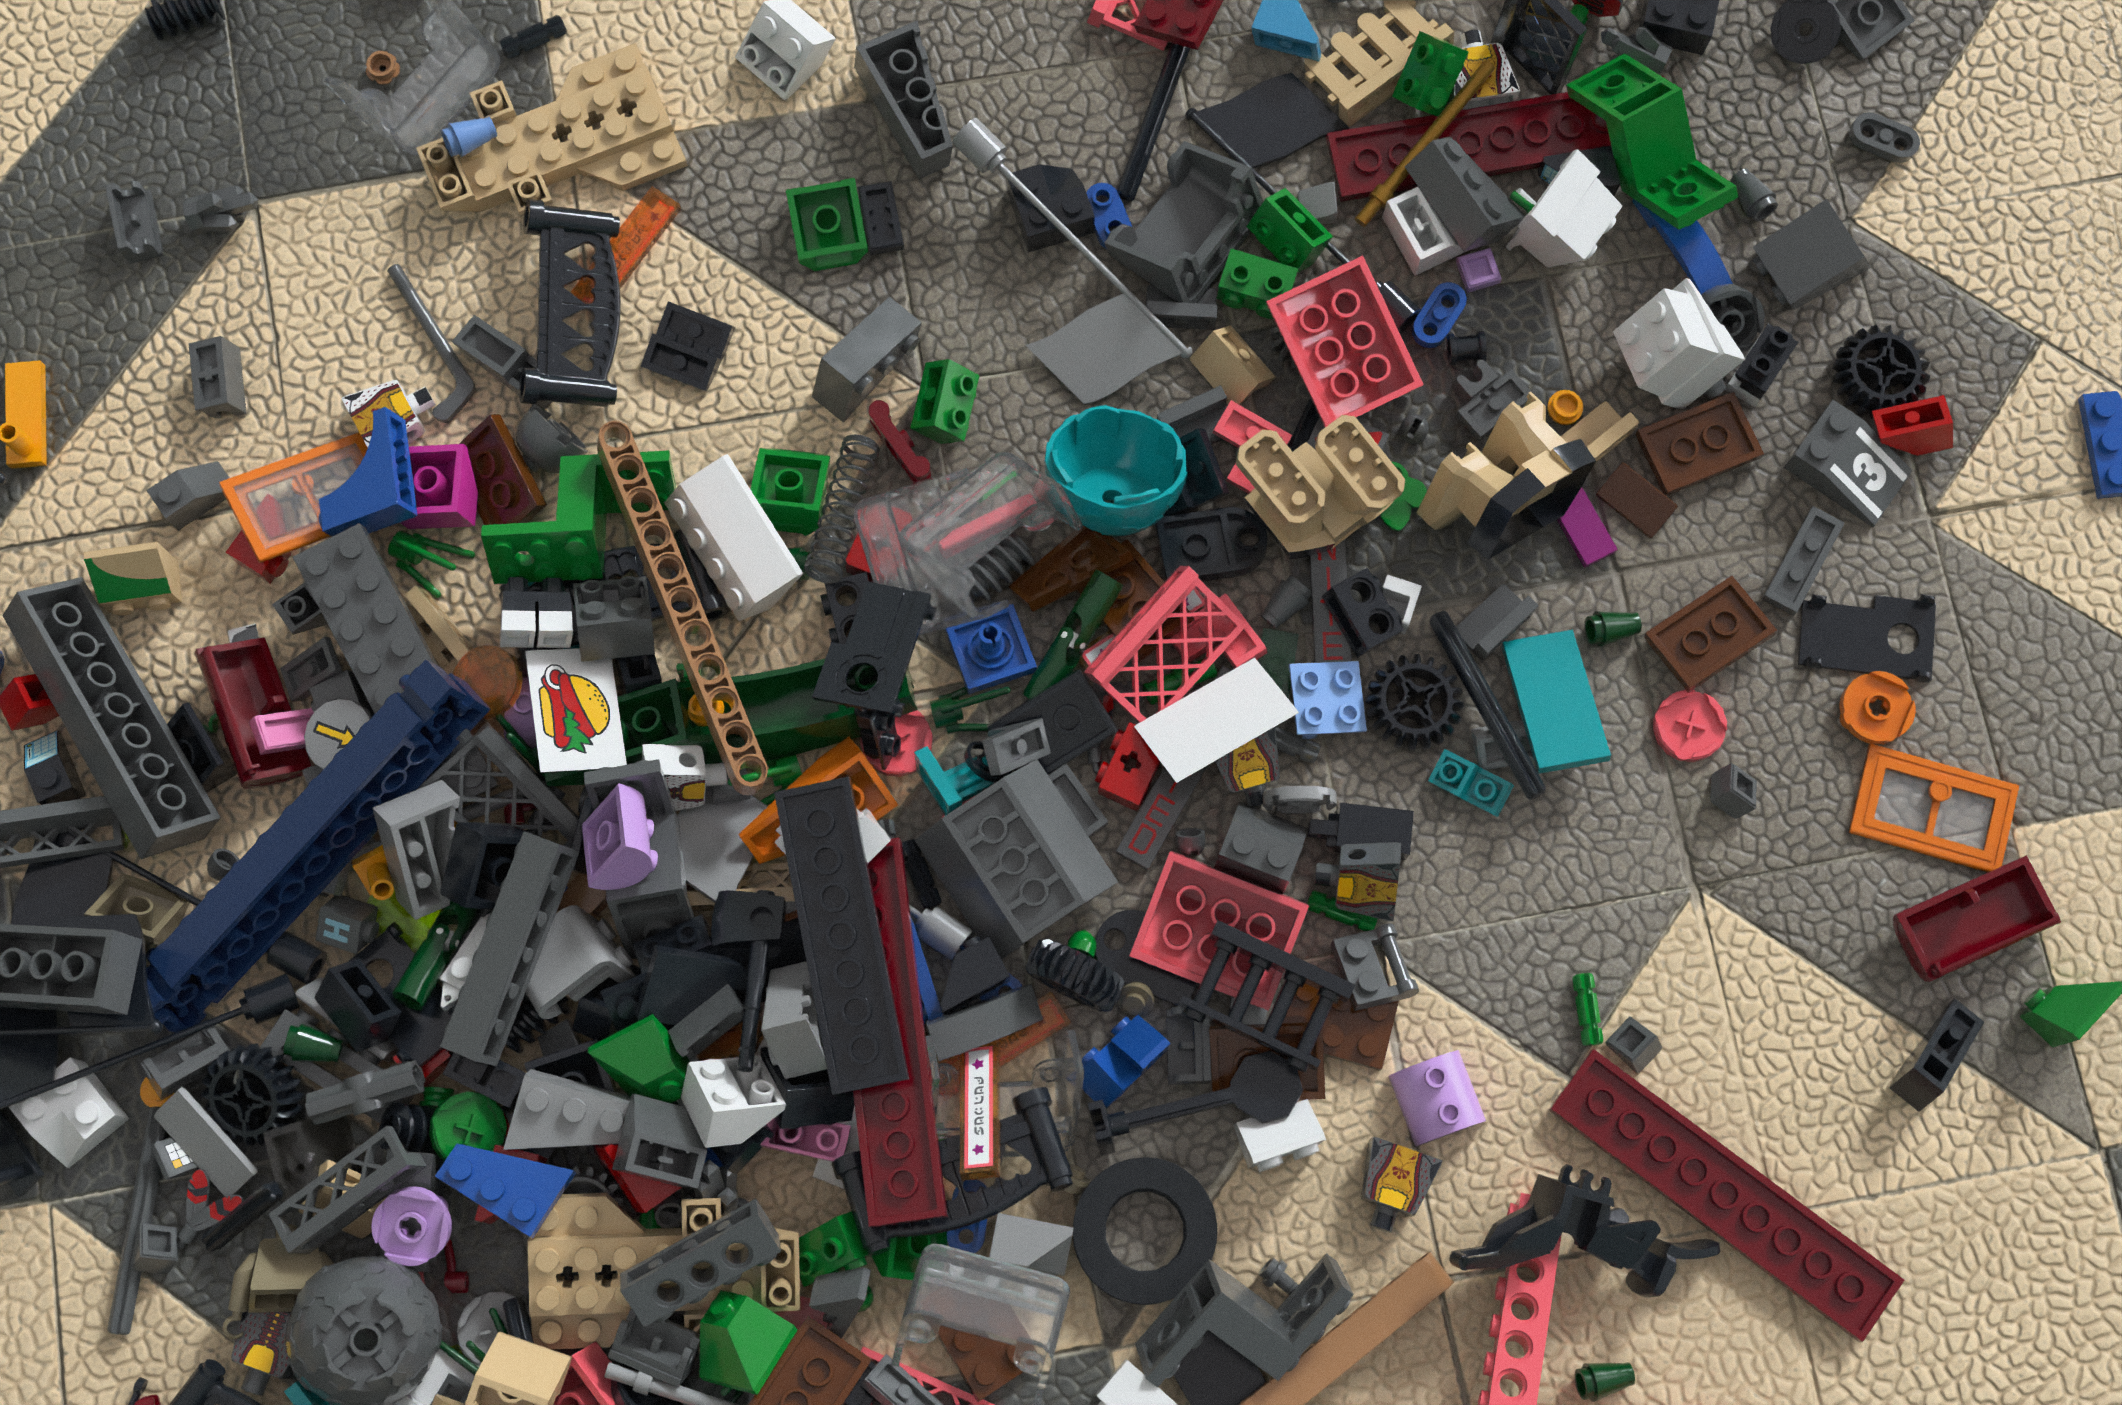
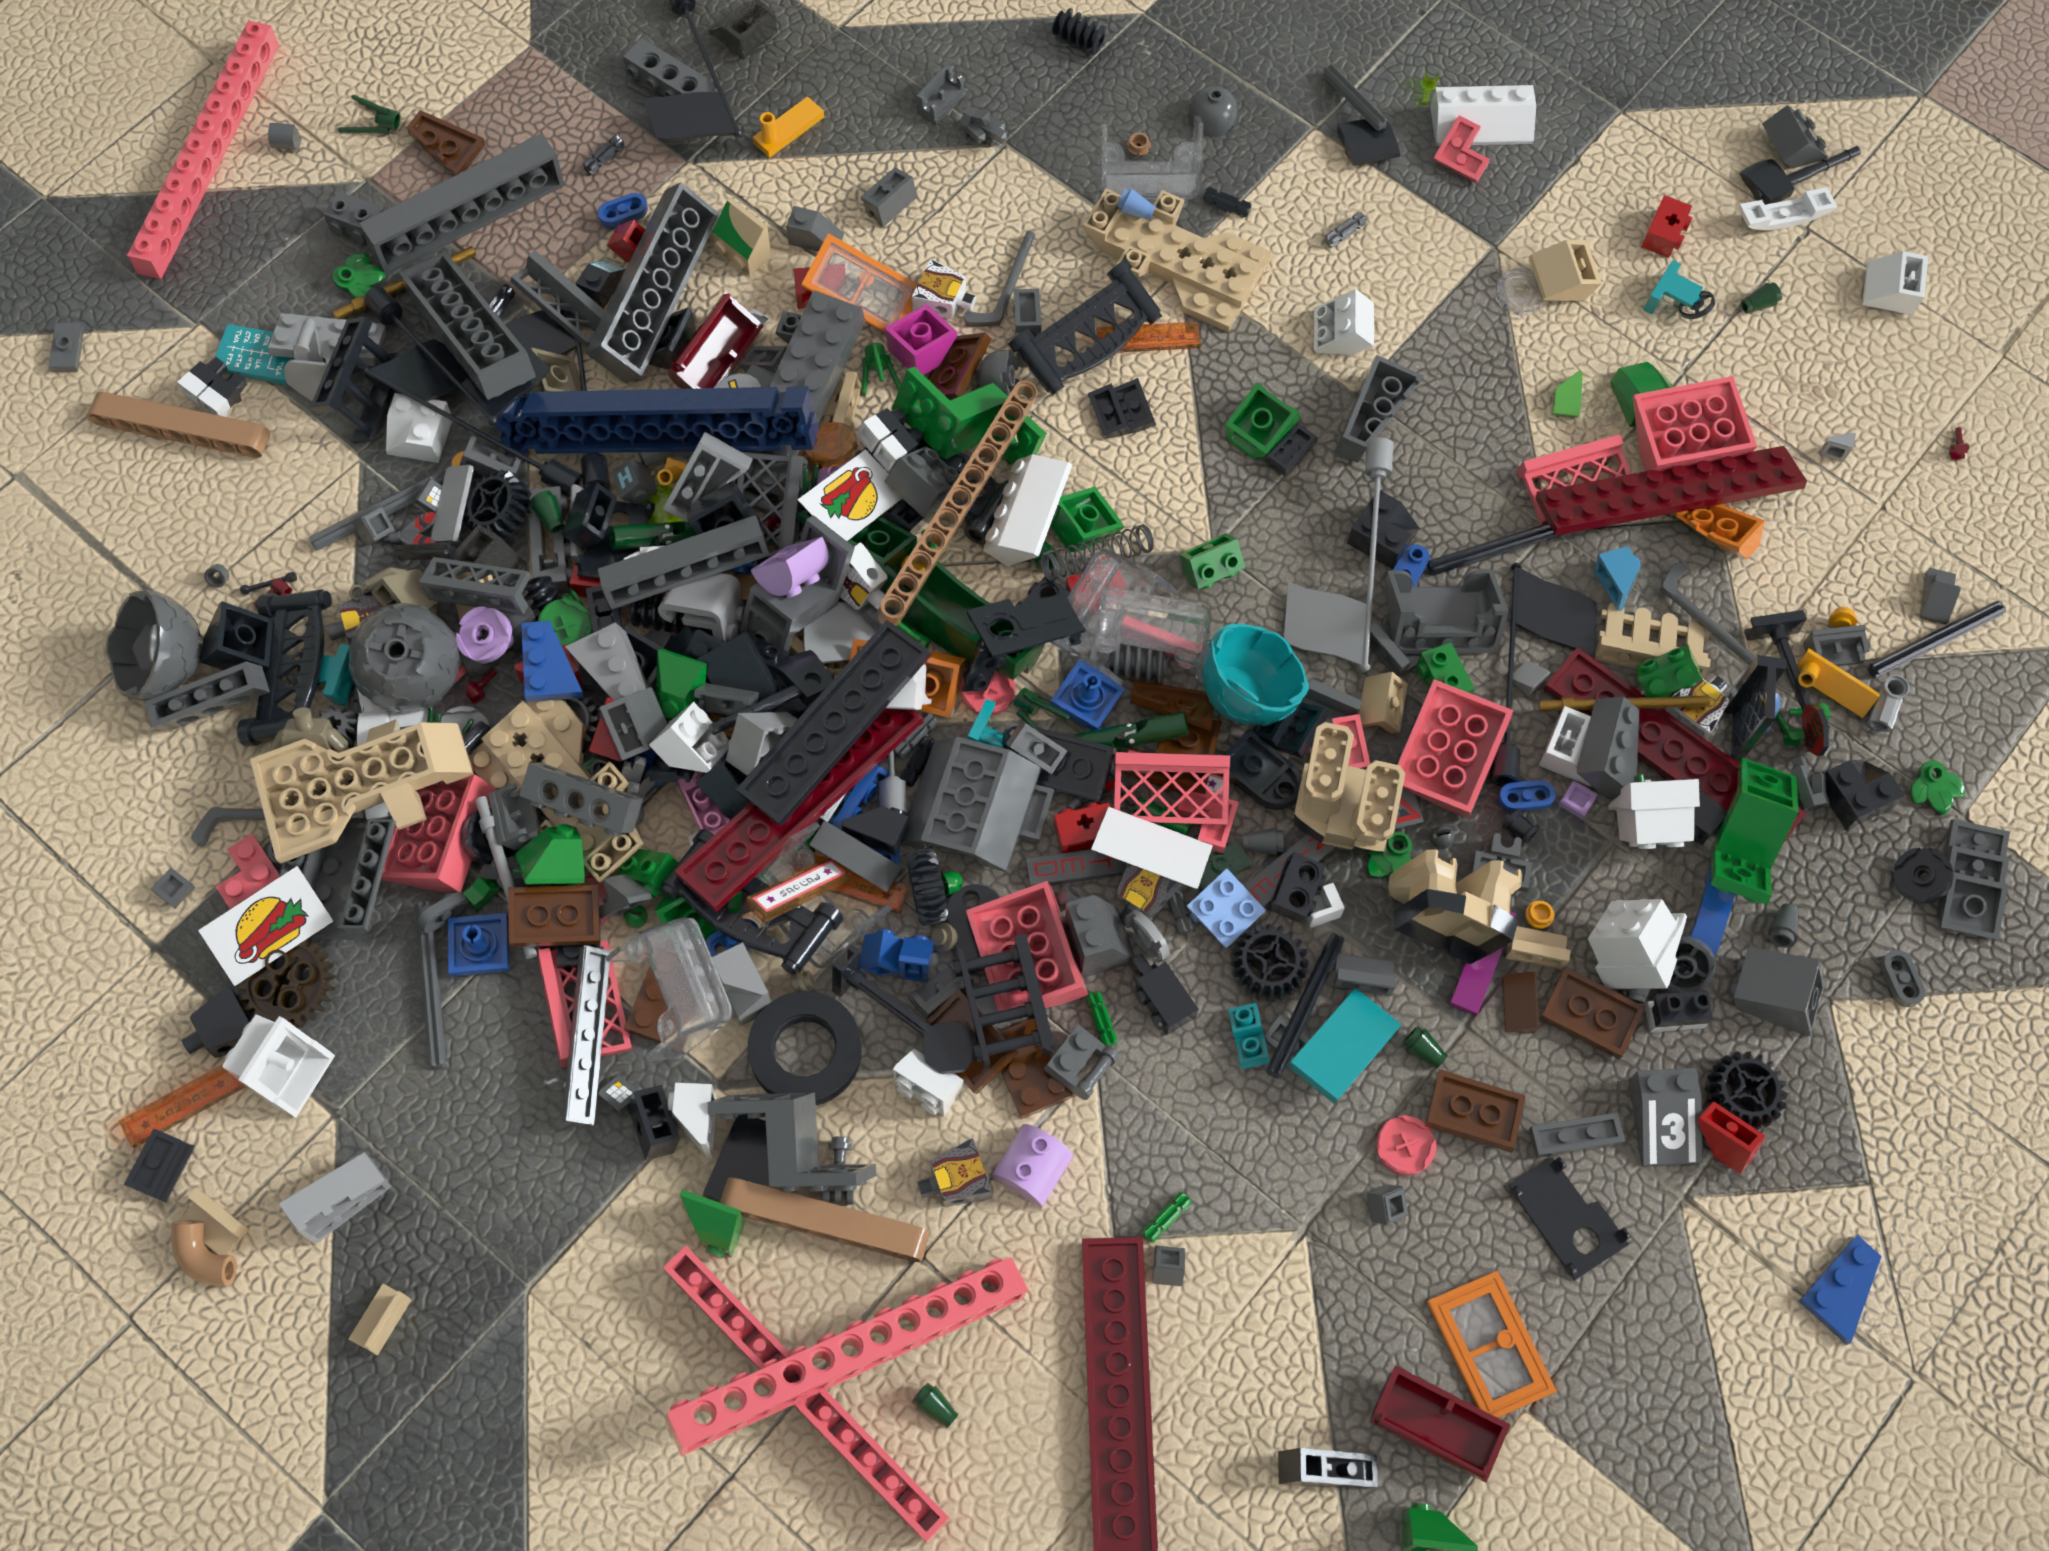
camera: 50 degrees right, 10 degrees down
(280, 730) = (714, 366): bright pink tile -> none
(365, 1092) = (542, 556): dark grey piece -> none
(381, 486) = (897, 309): blue arch -> none
(865, 358) = (1199, 500): dark grey wedge -> none
(898, 442) = (1165, 555): dark red plate -> none
(1289, 230) = (1495, 669): green brick -> none
(1364, 878) = (1131, 1012): torso -> none
(1594, 1226) = (1025, 1299): black piece -> none
(1895, 699) = (1514, 1270): orange plate -> none

